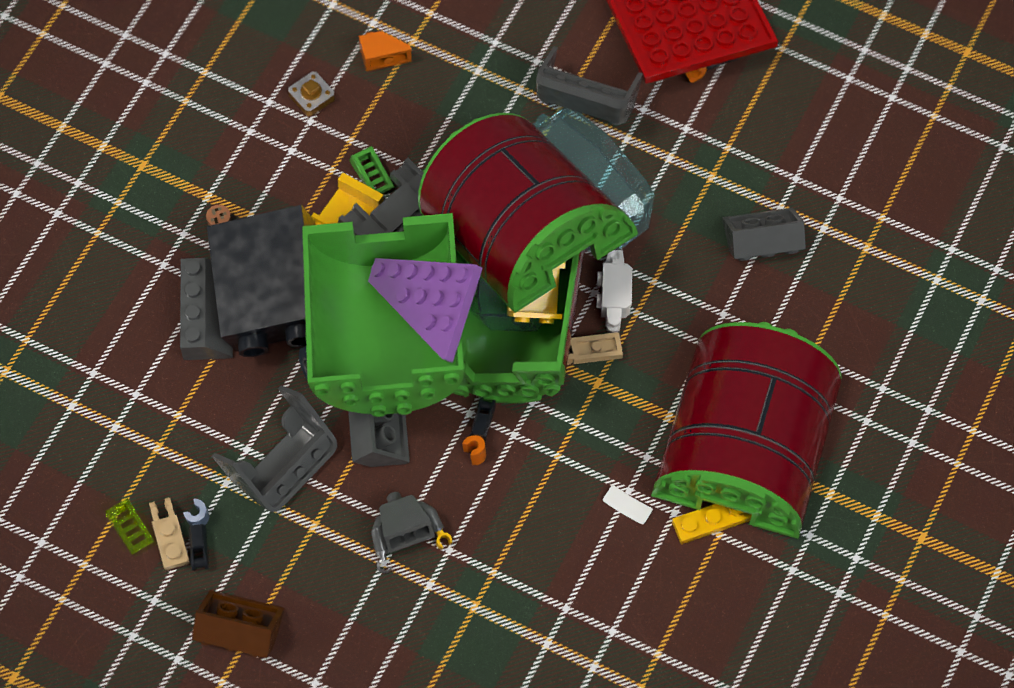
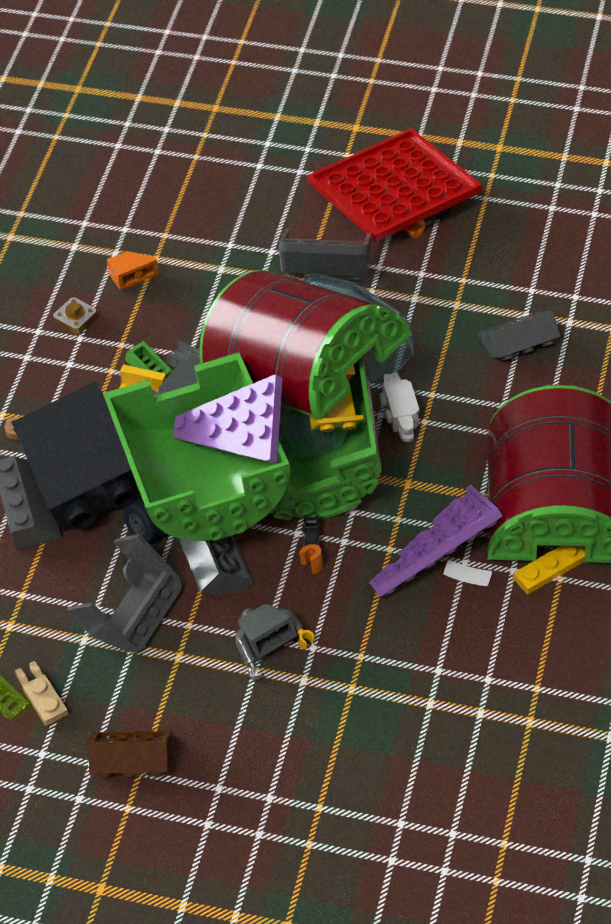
camera: 10 degrees left, 15 degrees down
(198, 535) = (69, 685): black piece -> none
(595, 348) = (400, 453): tan hinge -> none
(629, 454) = (451, 527): none -> medium lavender wing

